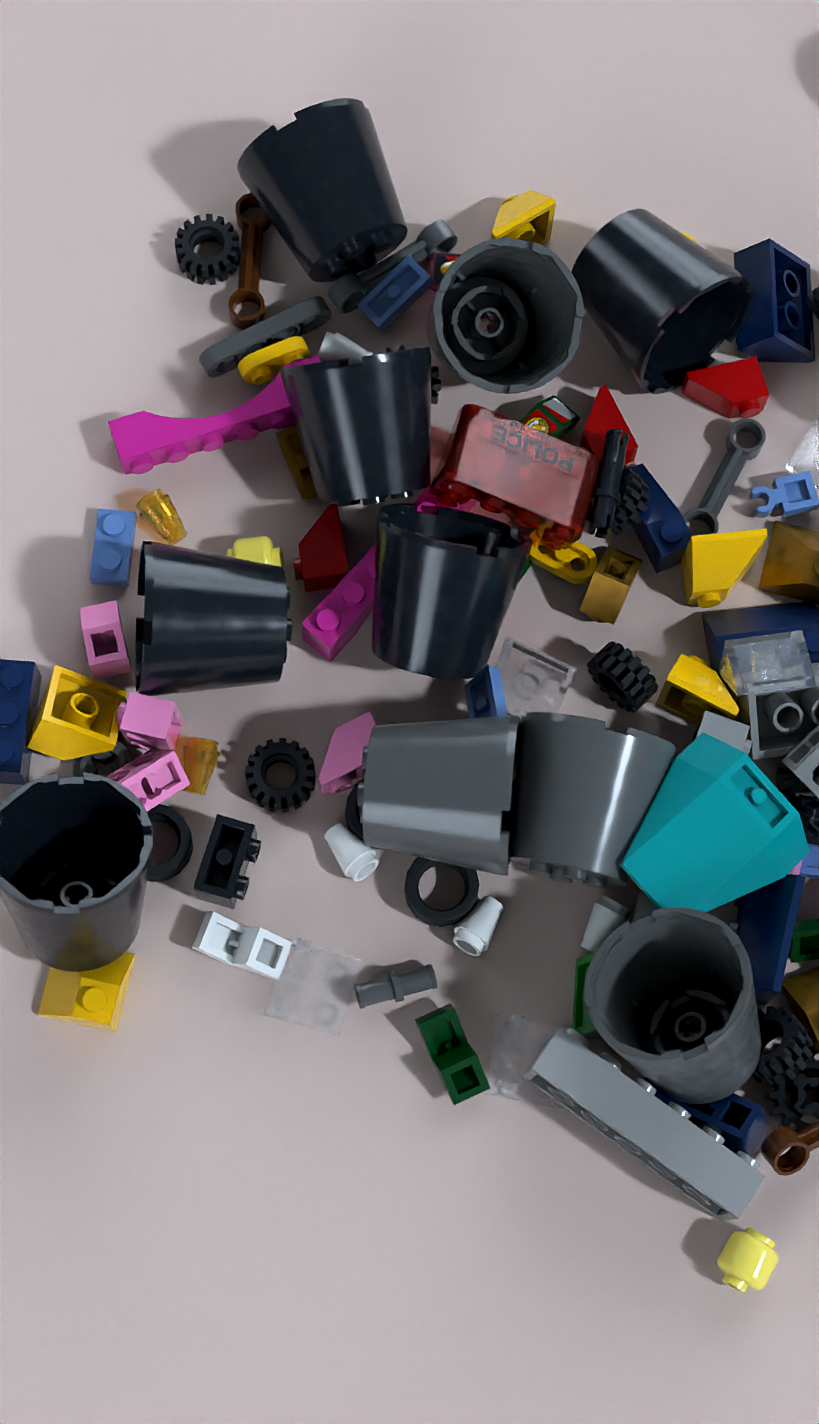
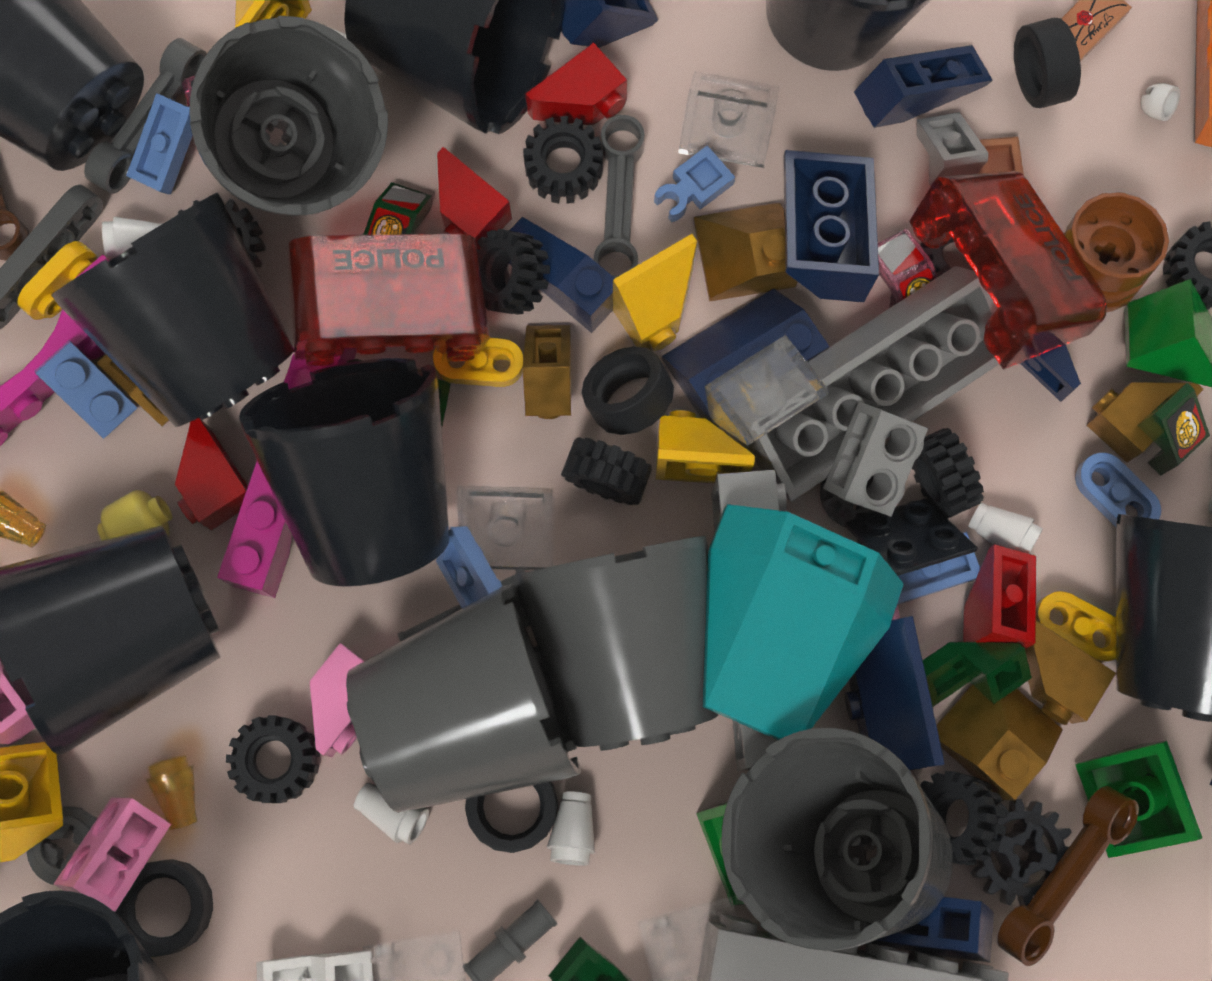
camera: 20 degrees left, 5 degrees up
(149, 722) = (92, 775): bright pink brick -> none
(225, 862) = (253, 896): black brick -> none
(262, 448) = (86, 389): none -> medium blue plate
(604, 919) = (711, 763): white cone -> none
(607, 493) = (498, 274): black pin -> none
(670, 641) = (641, 409): none -> black tyre
(700, 416) = (563, 136): none -> black tyre

